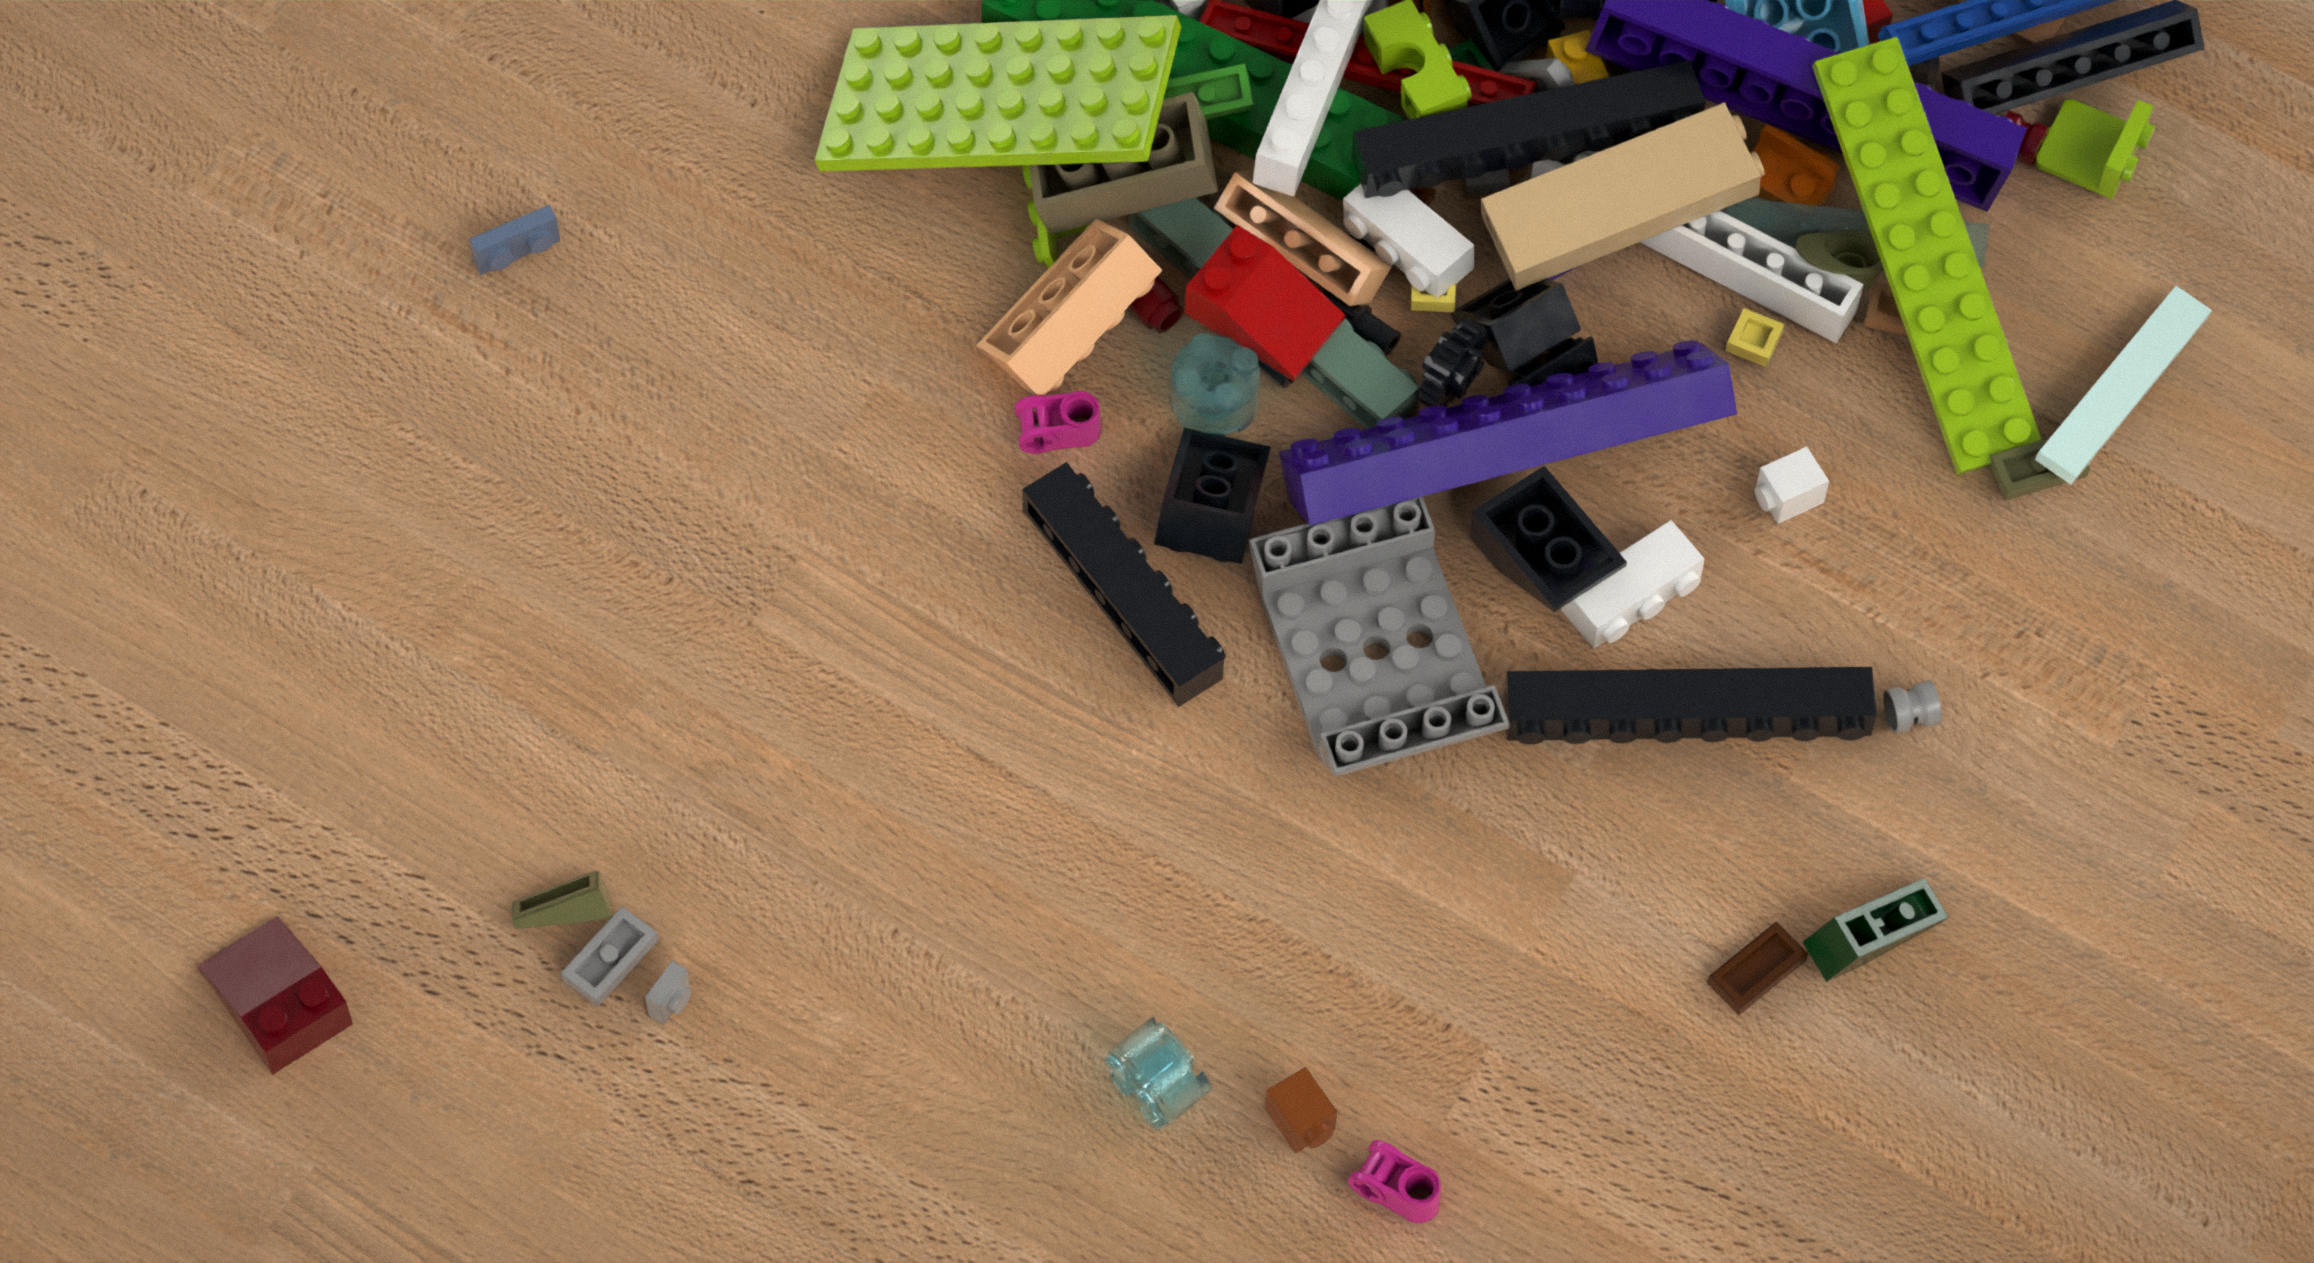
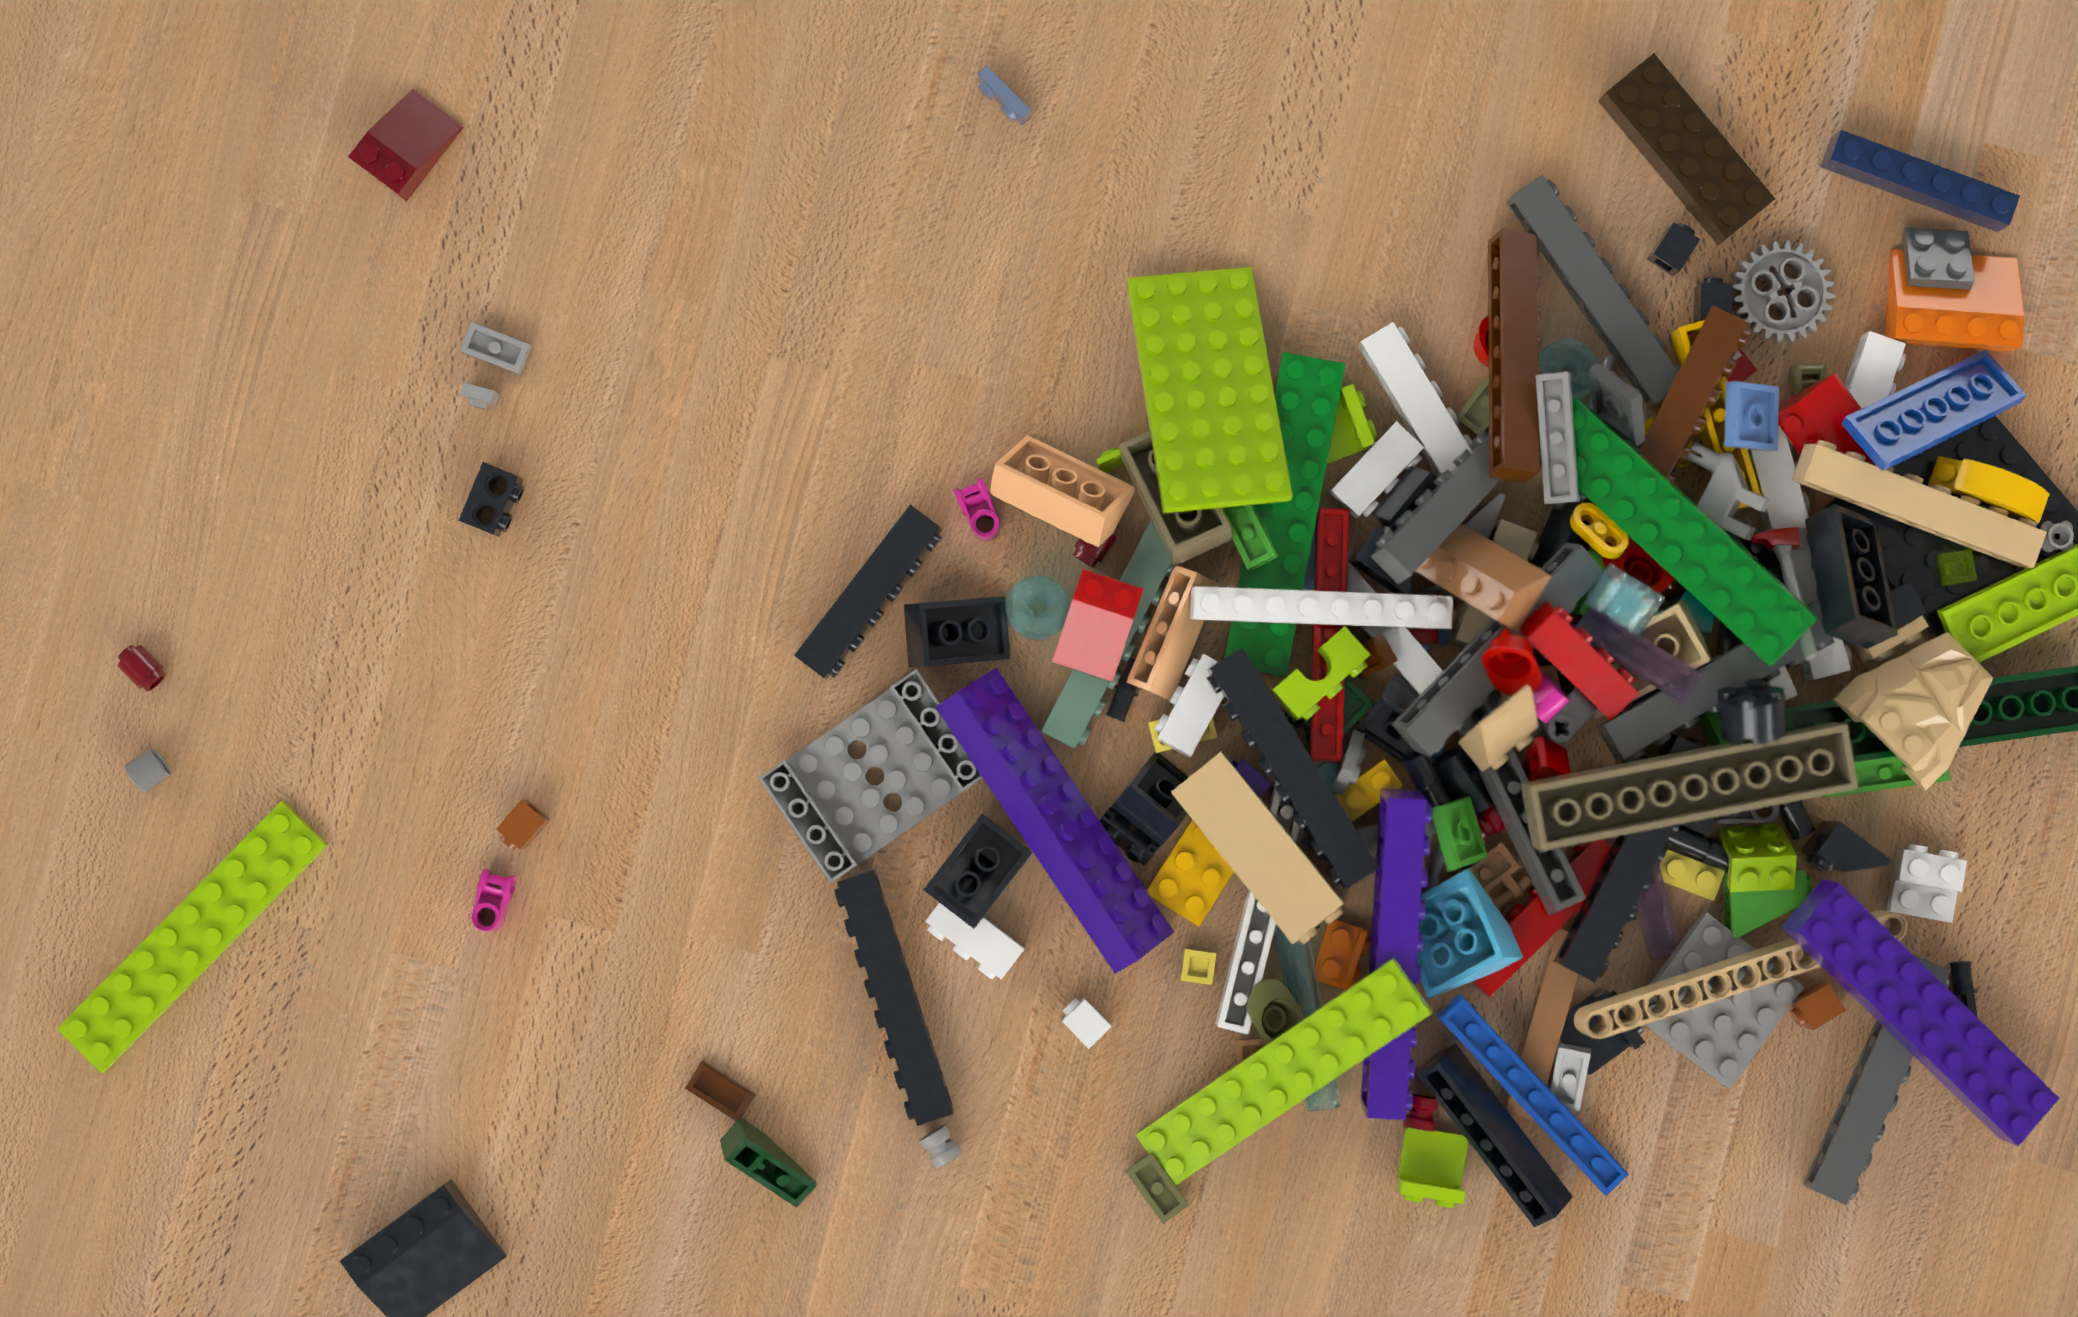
camera: 75 degrees right, 25 degrees up
(565, 903) = (527, 324): olive slope -> none
(814, 1026) = (483, 497): none -> black brick
(1158, 1073) = (512, 726): clear light blue brick -> none
(1453, 364) = (1098, 766): black gear -> none
(1627, 306) = (1191, 876): none -> yellow plate
(2123, 385) = (1237, 1232): light aqua tile -> none

